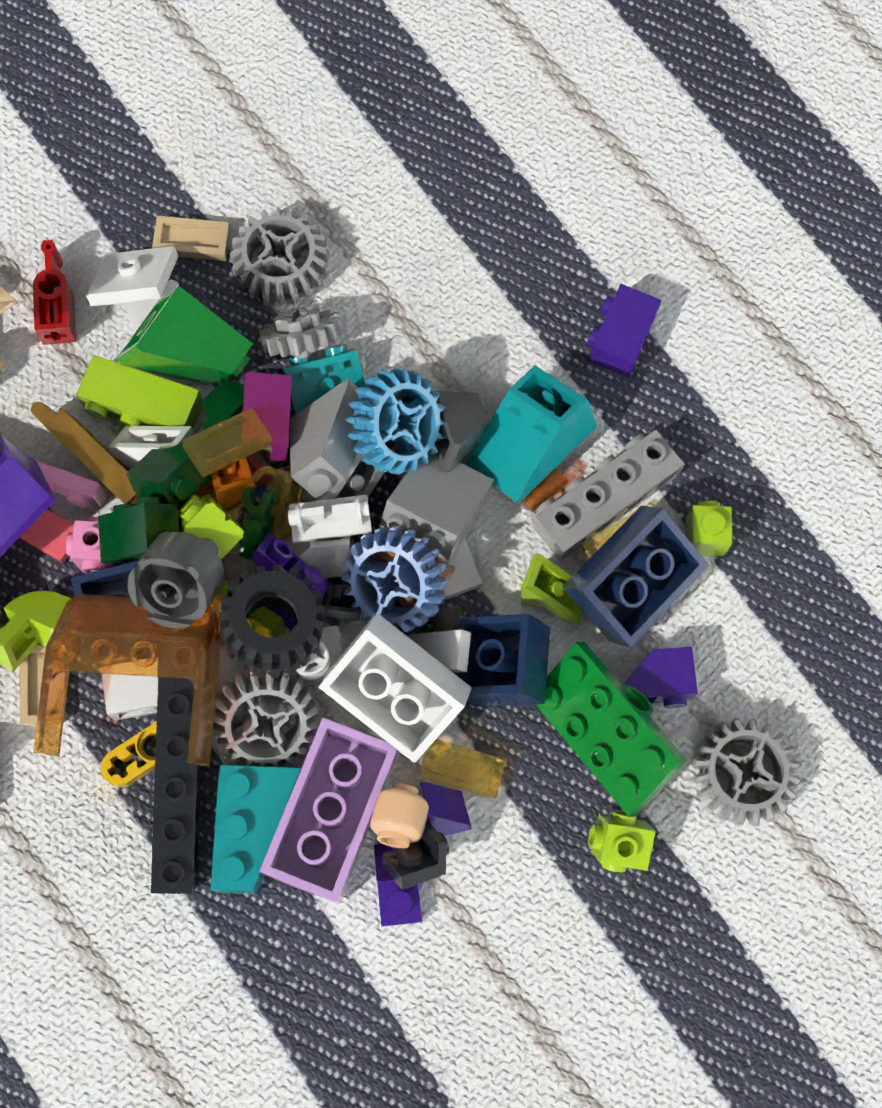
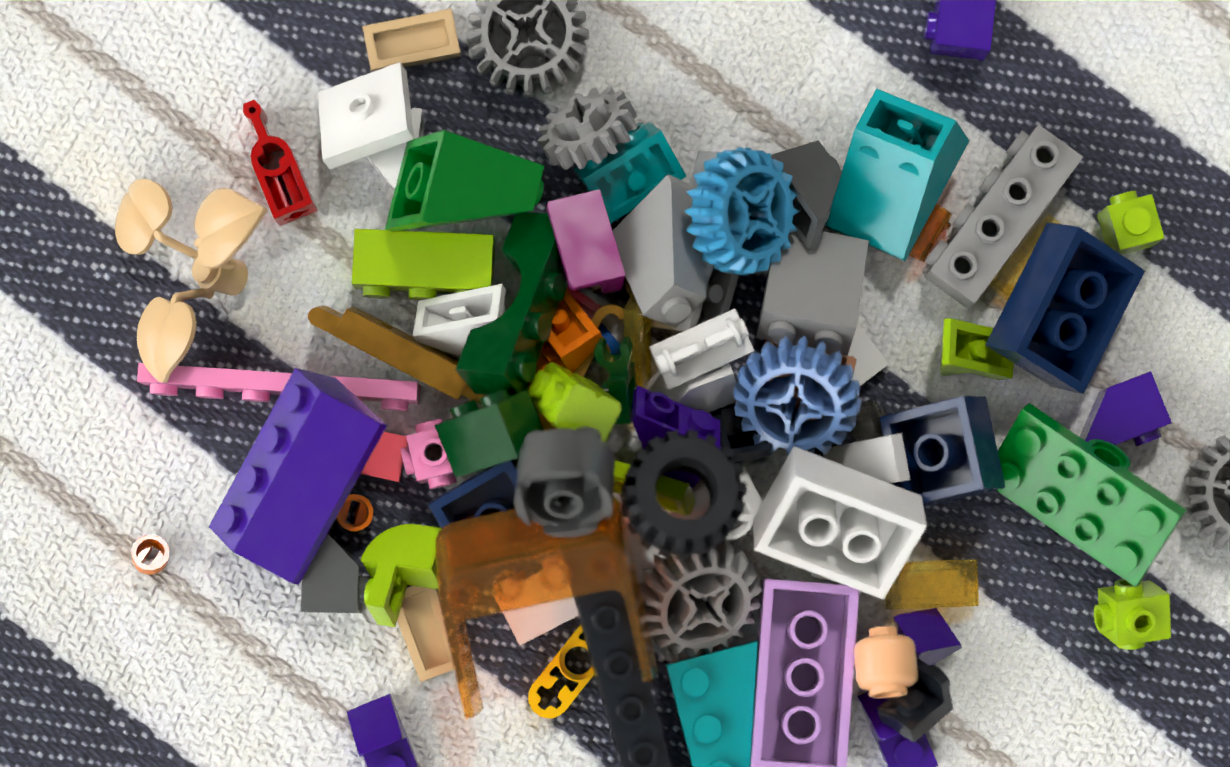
camera: 15 degrees left, 10 degrees up
(8, 569) = (363, 513): none -> orange hinge
(227, 442) = (559, 298): clear yellow tile -> none

